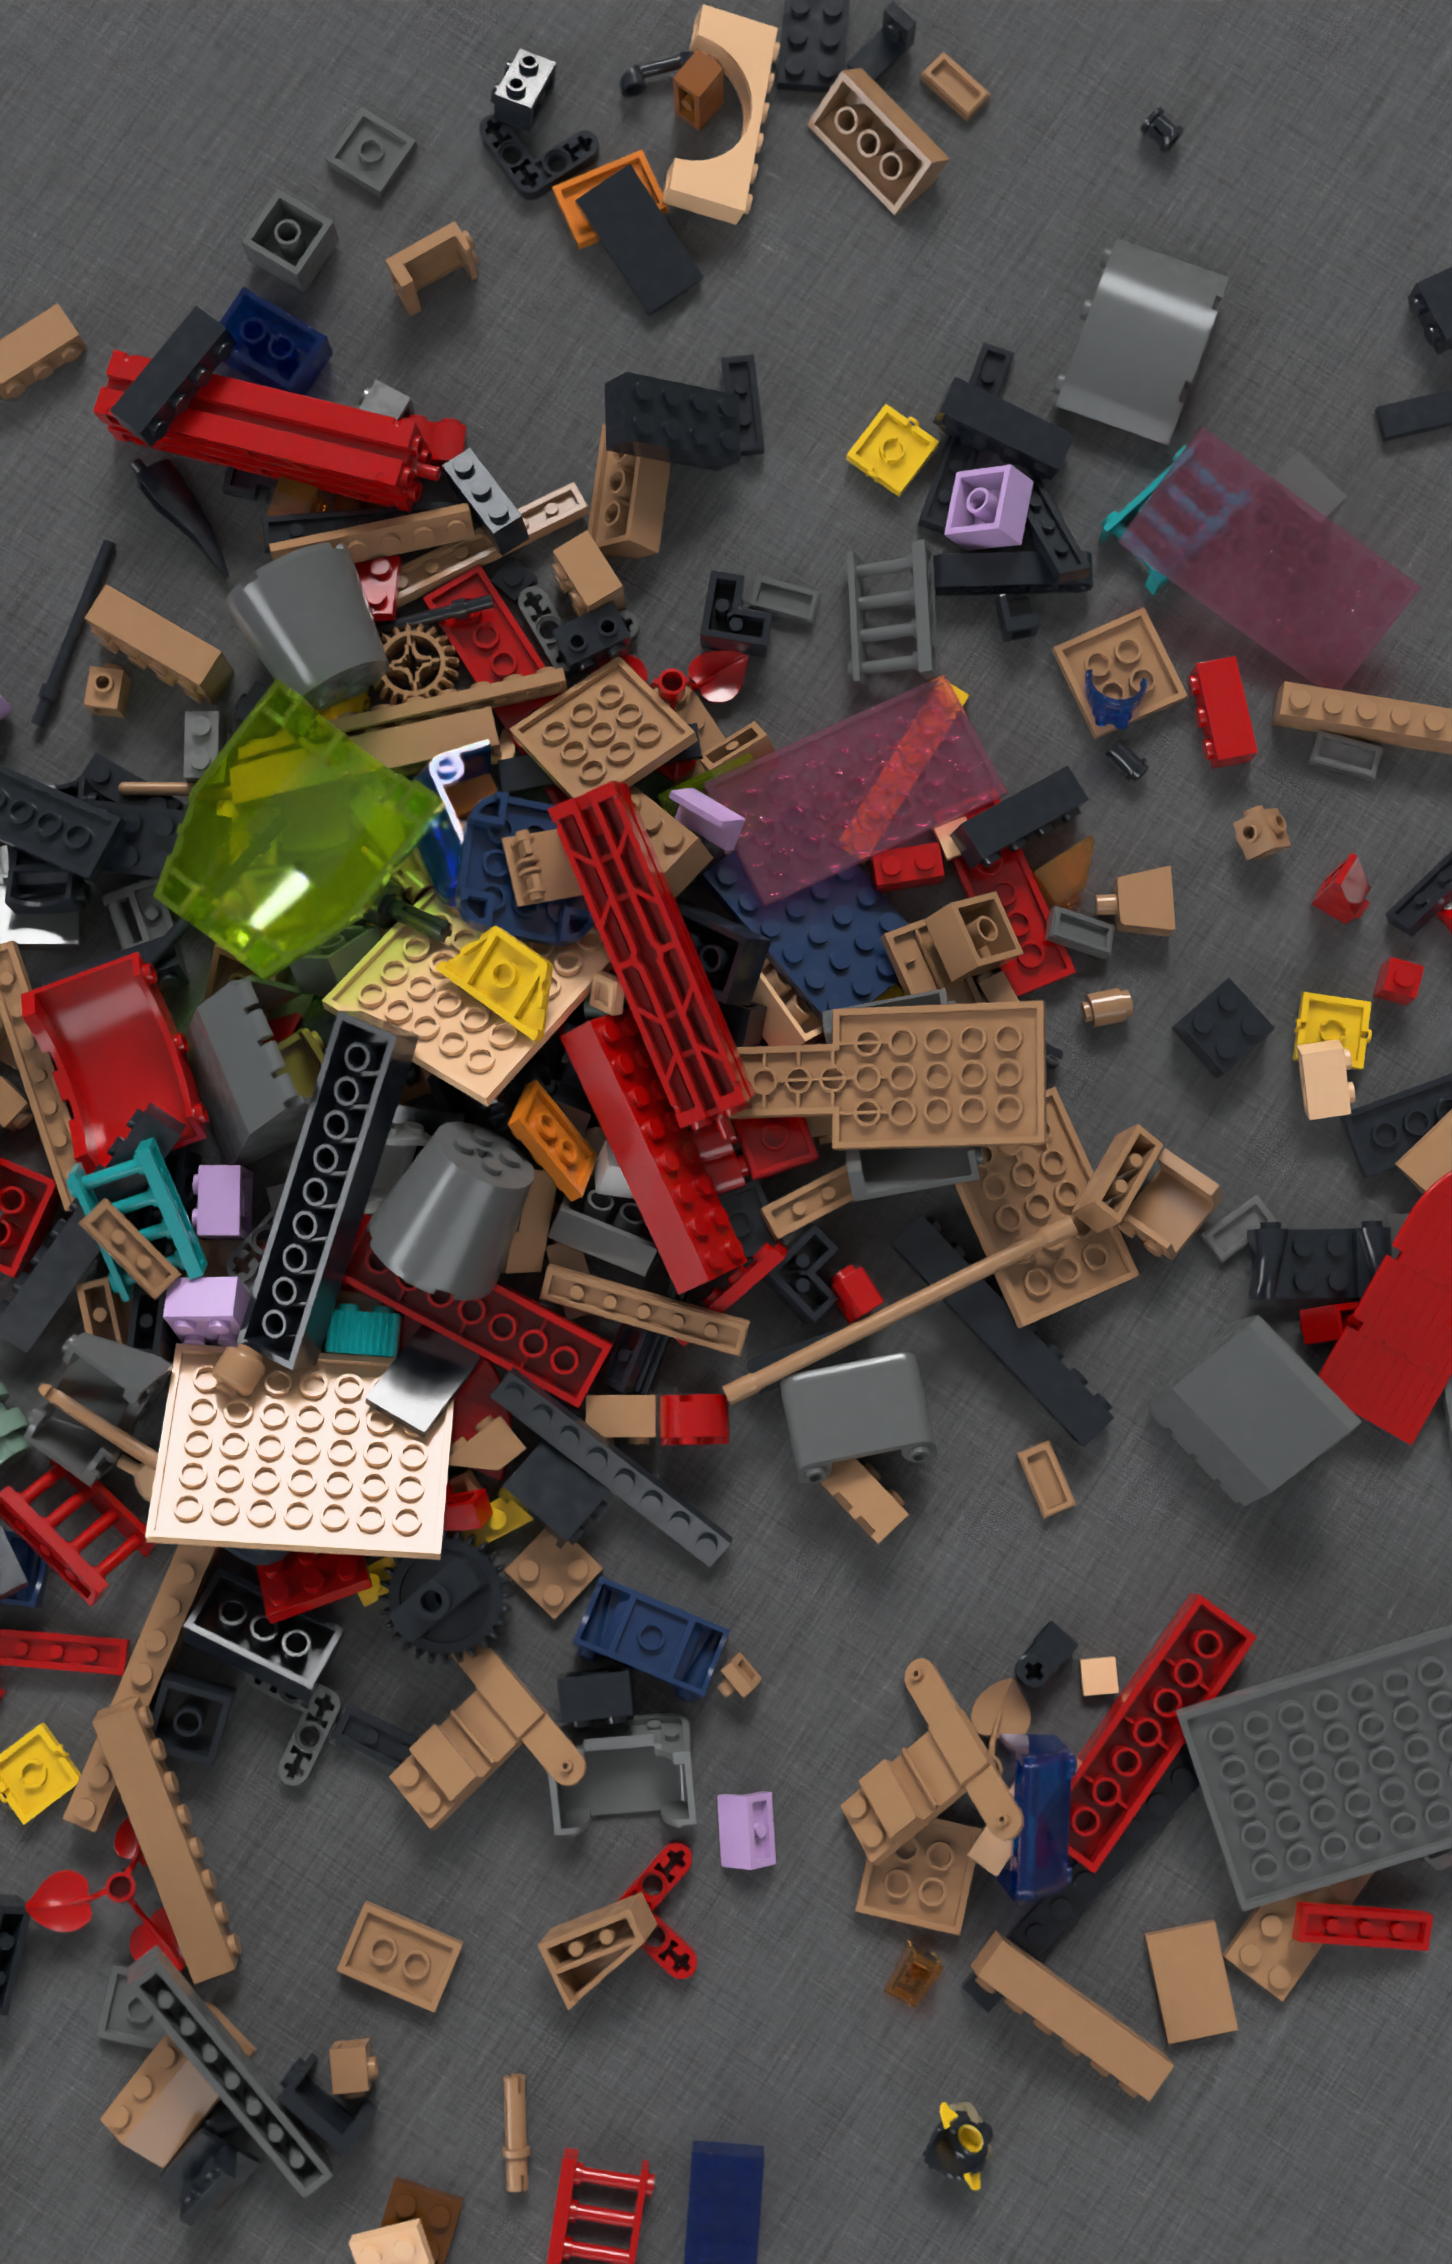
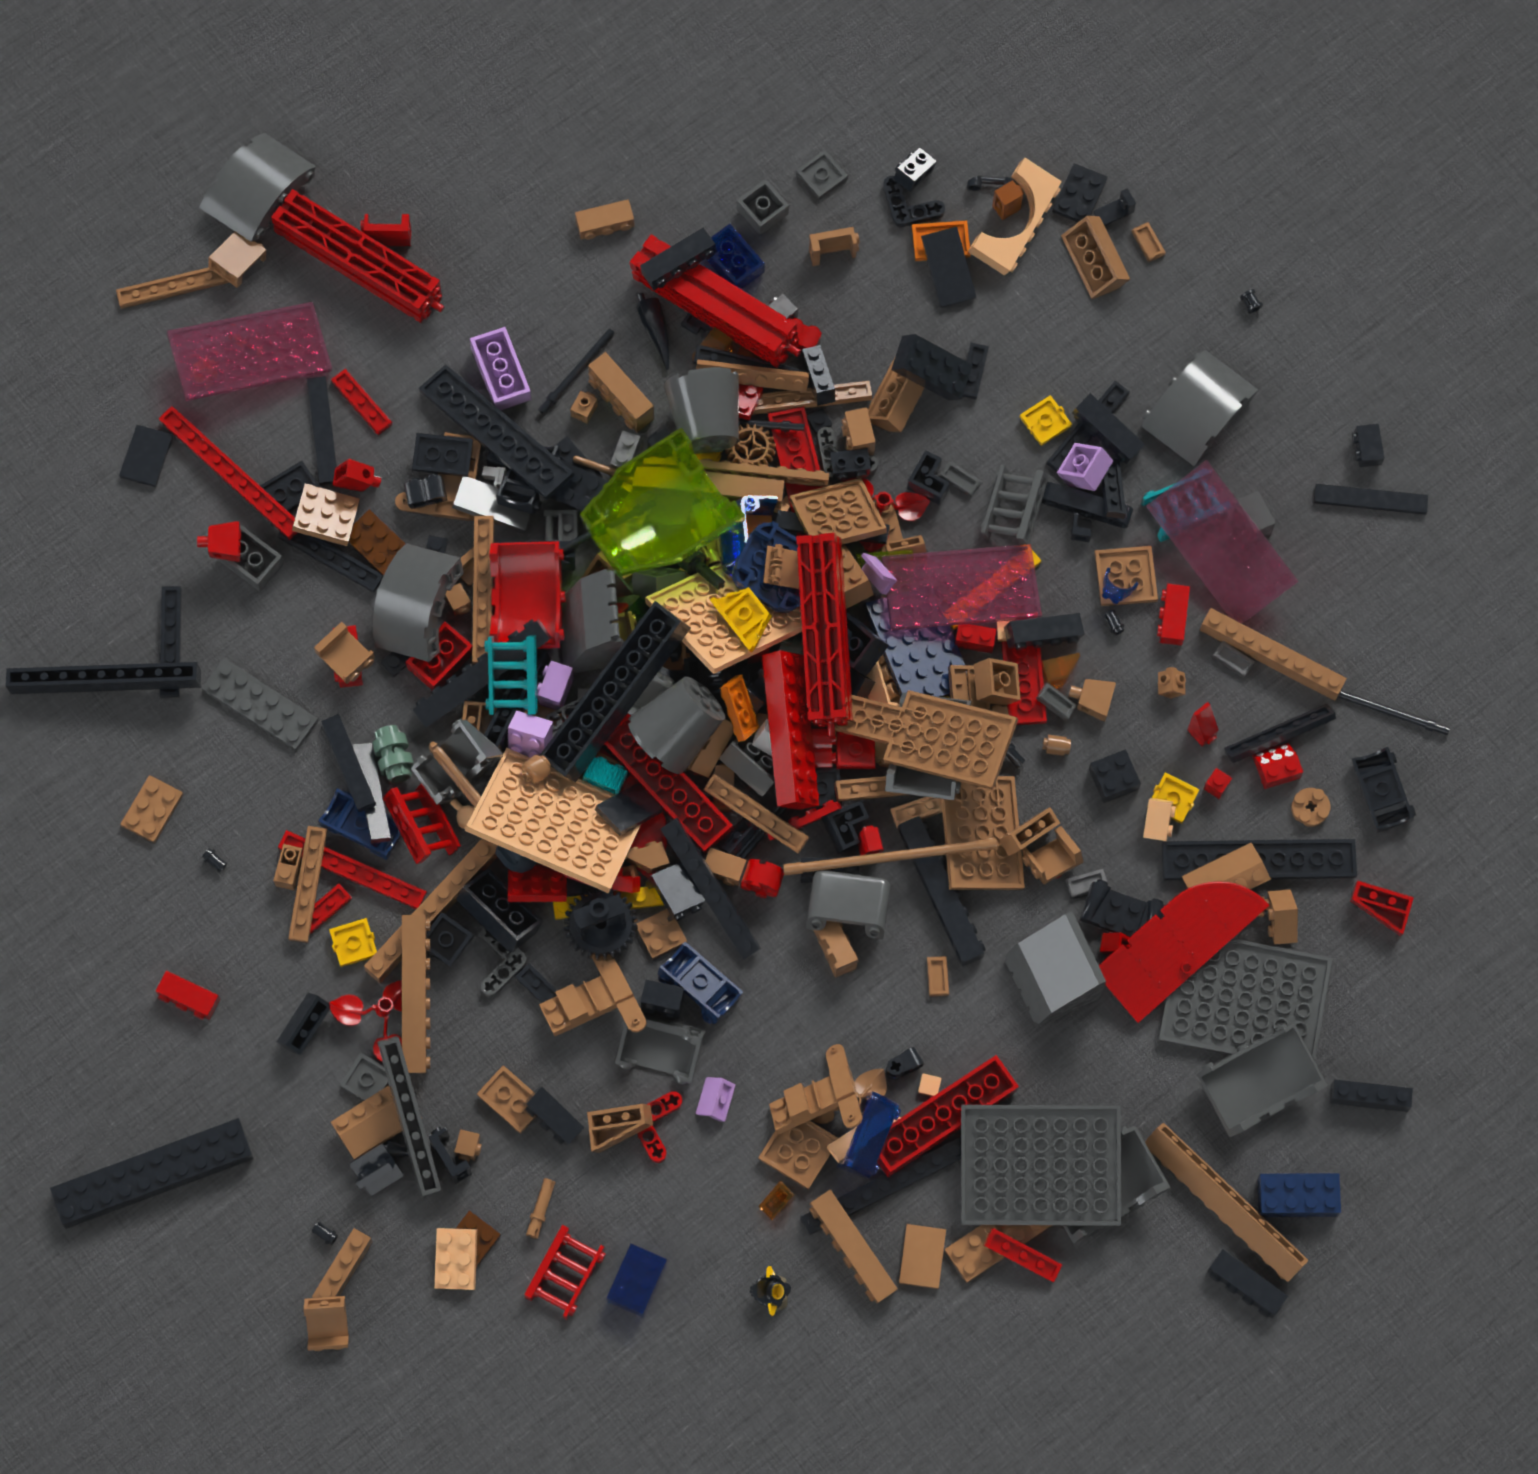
camera: 15 degrees right, 10 degrees down
(129, 1248) = (504, 687): medium nougat tile -> none
(480, 1968) = (552, 1116): none -> black brick
(606, 993) = (793, 642): light nougat tile -> none
(738, 1676) = (739, 1019): medium nougat tile -> none
(903, 1208) = (922, 807): none -> light nougat tile

